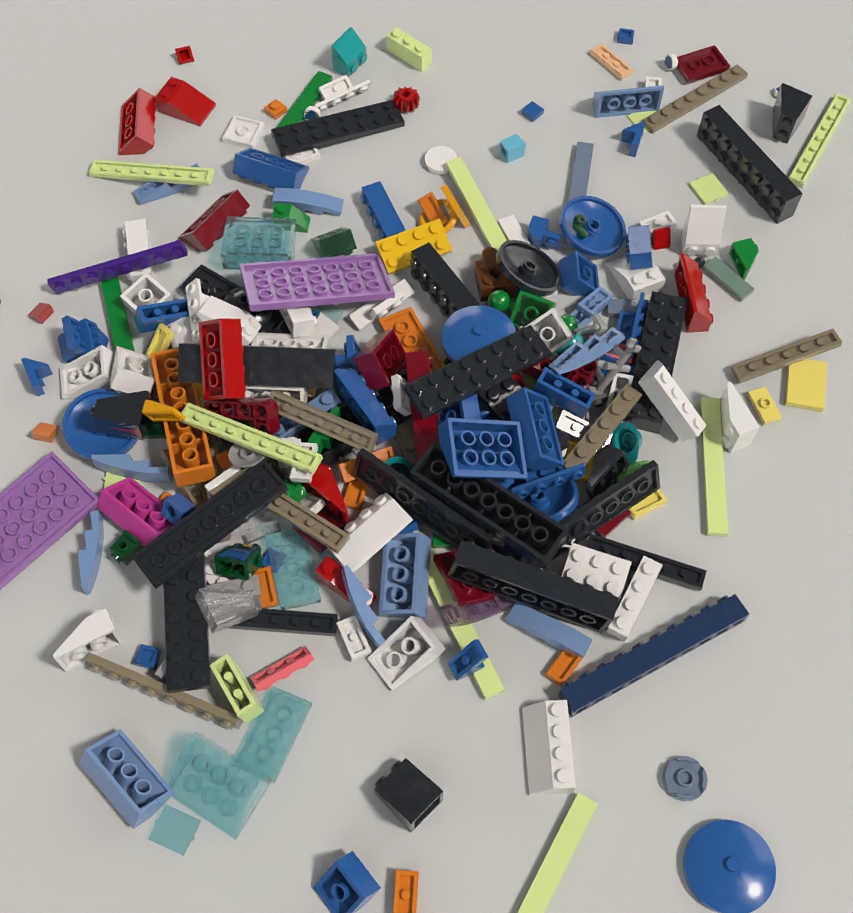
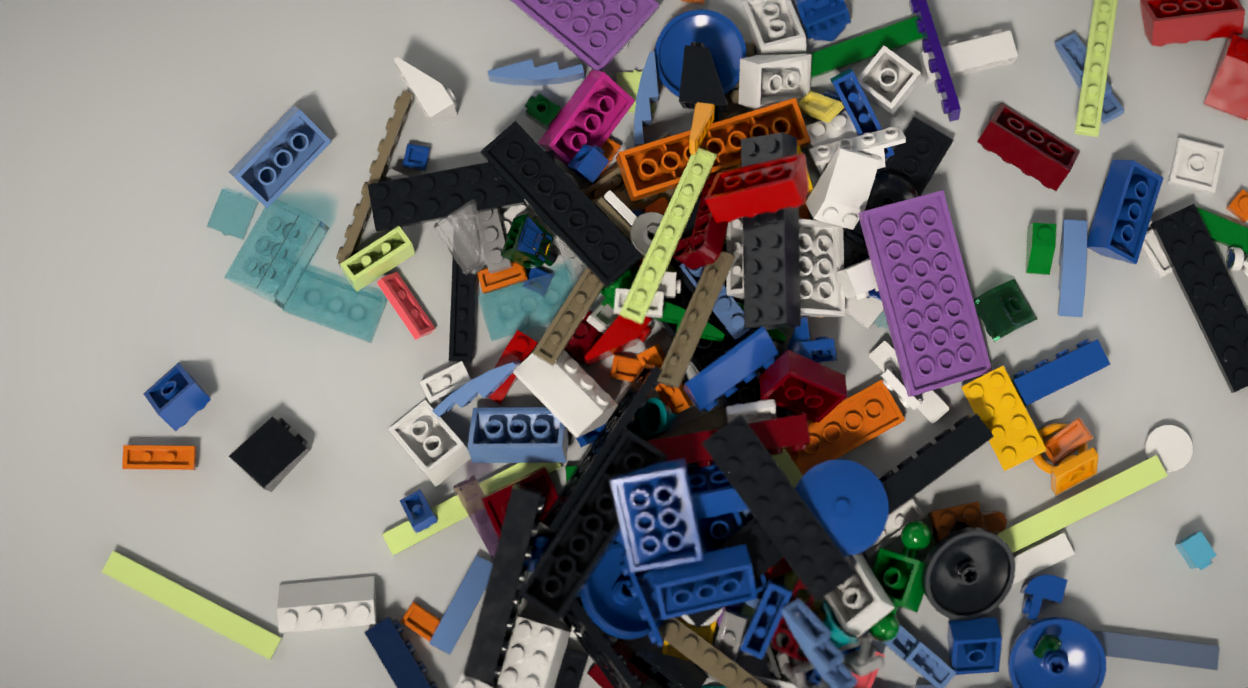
camera: 85 degrees right, 20 degrees up
(257, 240) = (992, 210): clear light blue slope -> none

